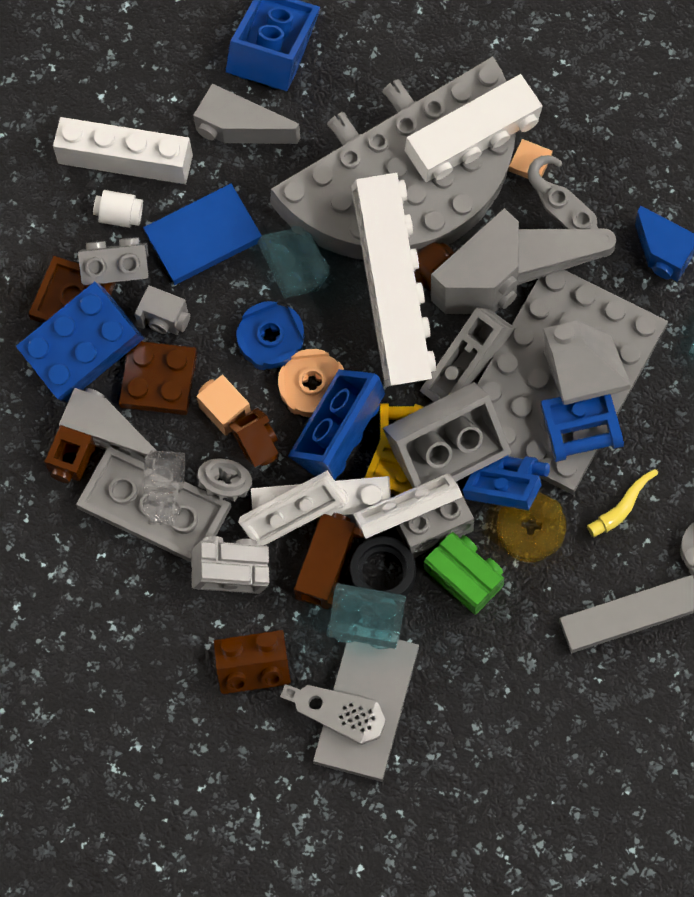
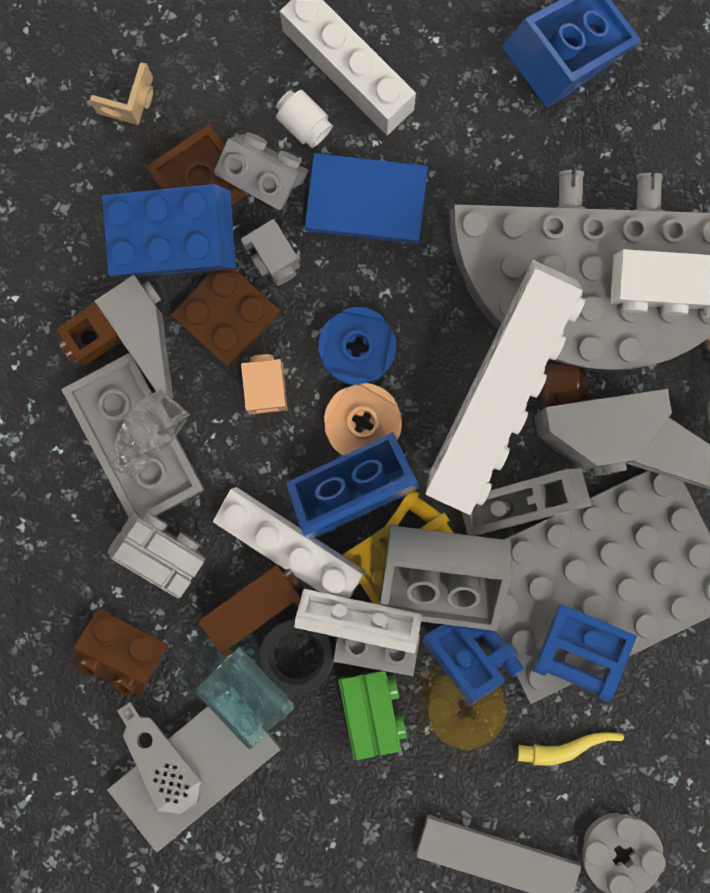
camera: 35 degrees right, 15 degrees up
(228, 471) = (226, 455): light grey gear -> none
(238, 120) = (479, 106): light grey slope -> none
(255, 437) = (268, 442): reddish brown brick -> none
(292, 509) = (251, 542): white tile -> none
(294, 261) = (431, 288): clear light blue bracket -> none
(583, 362) = (630, 597): light grey slope -> none

